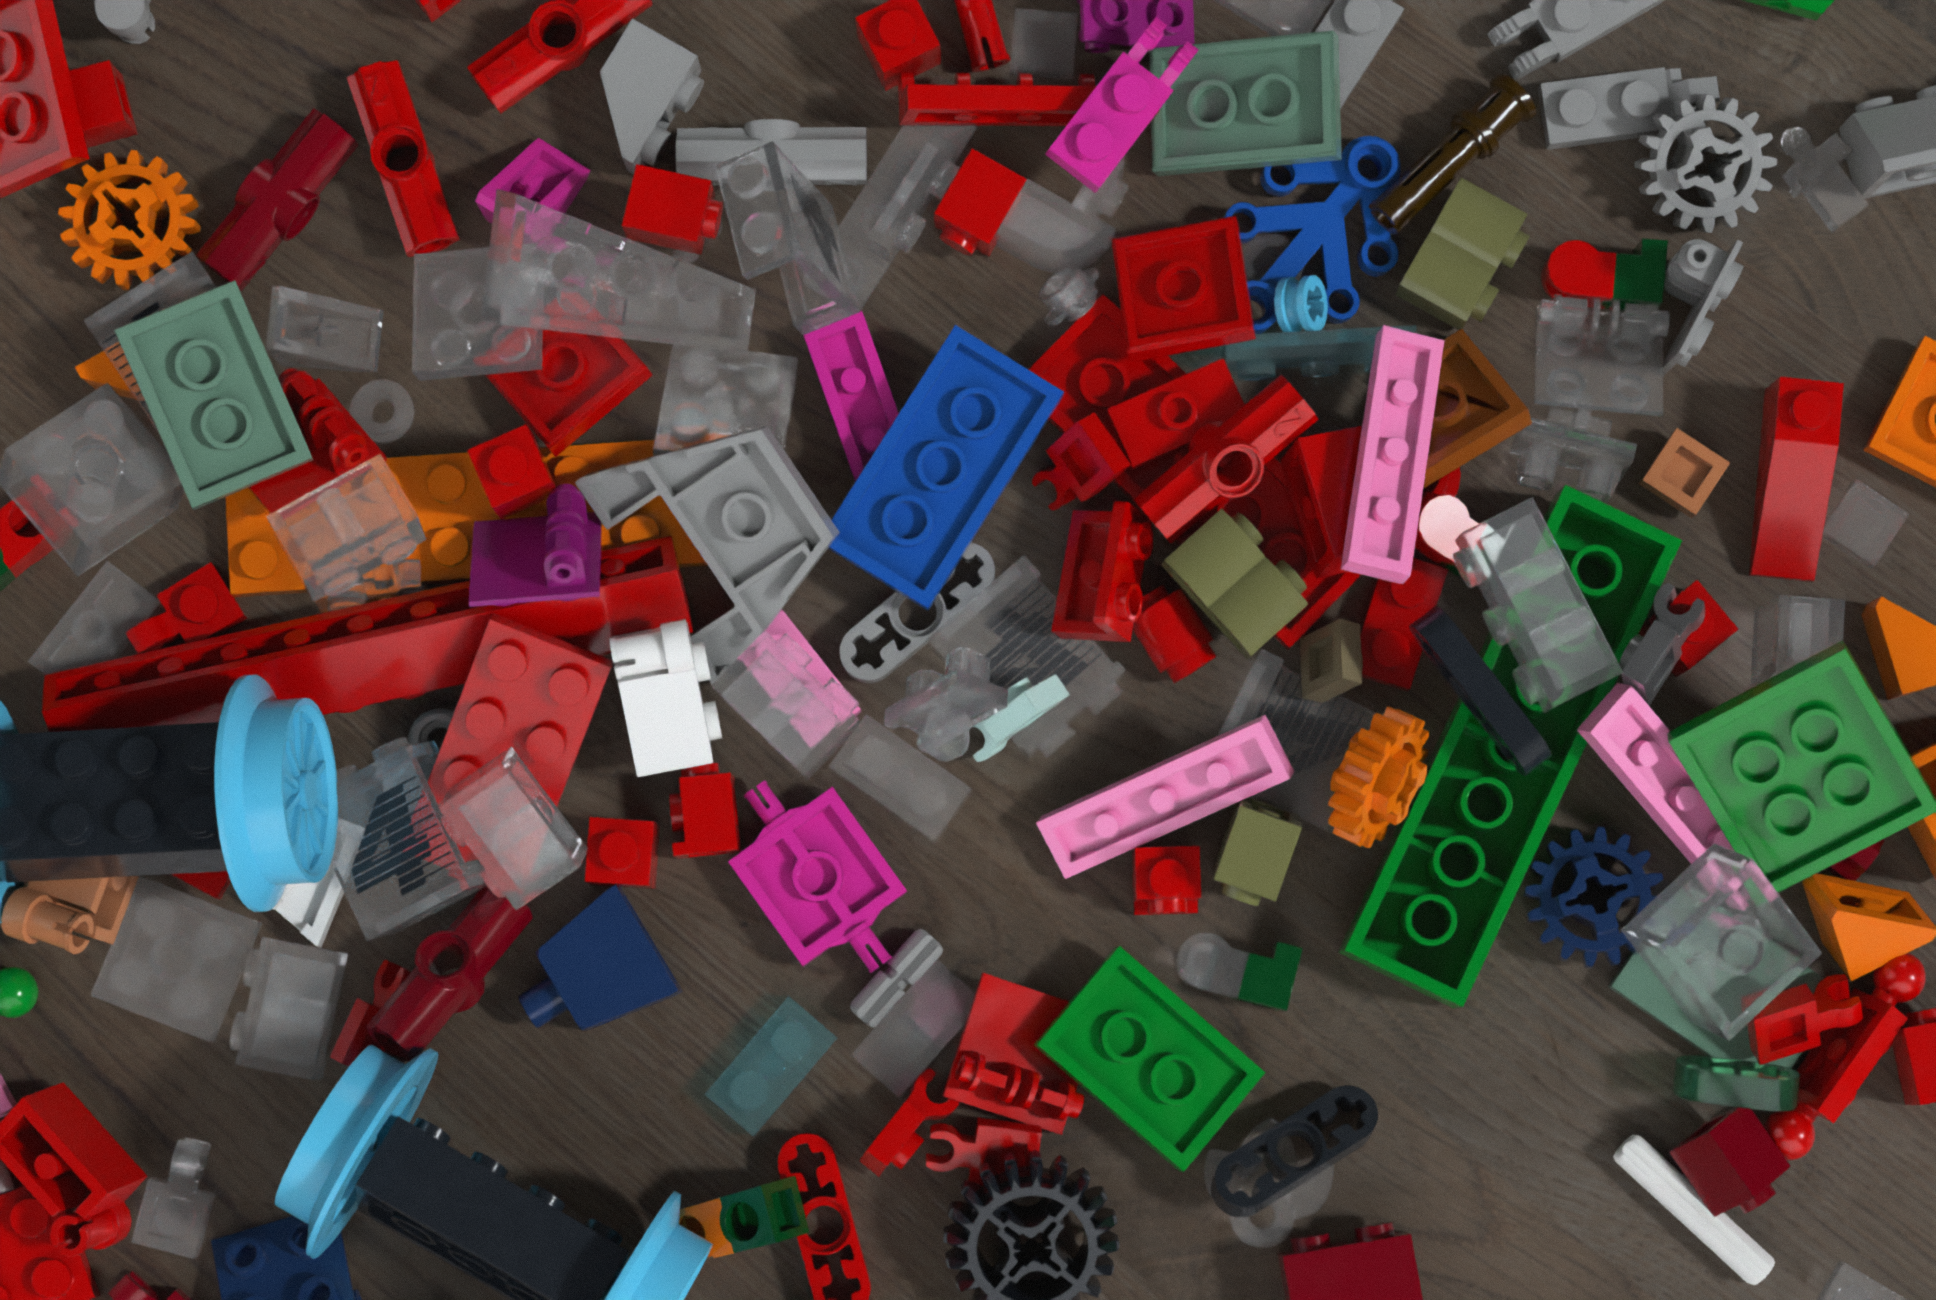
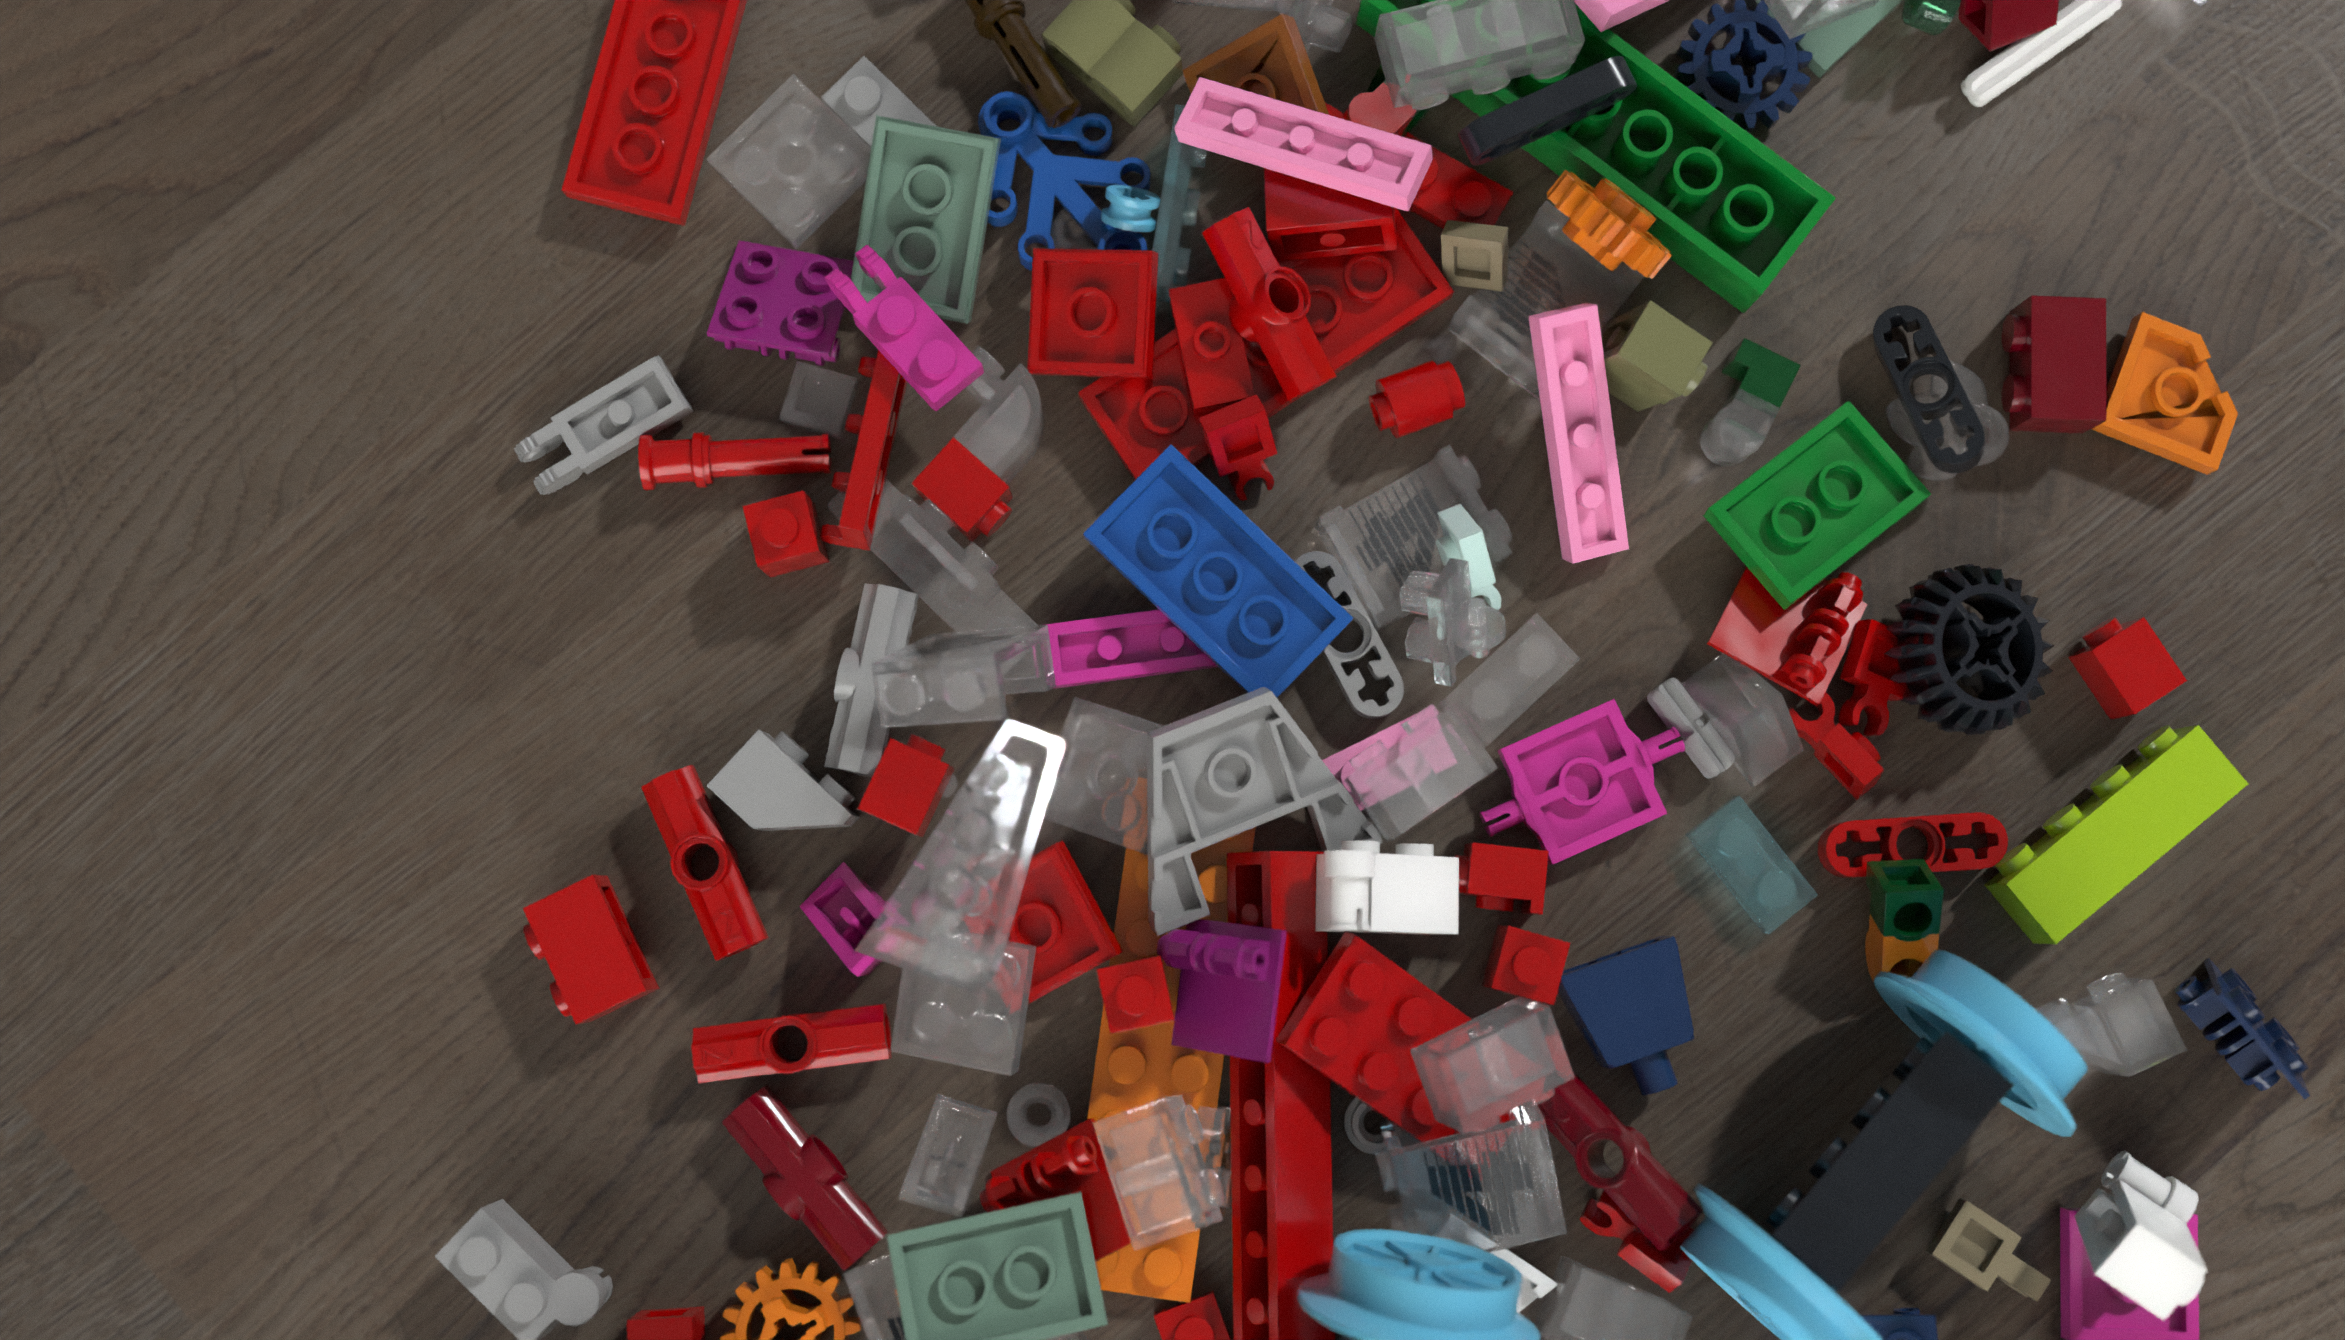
camera: 80 degrees left, 0 degrees up
(1069, 293) = (1070, 424): clear plate -> none
(1103, 574) = (1349, 449): red bracket -> none
(1166, 880) = (1651, 451): red brick -> none
(1236, 582) = (1388, 322): olive brick -> none

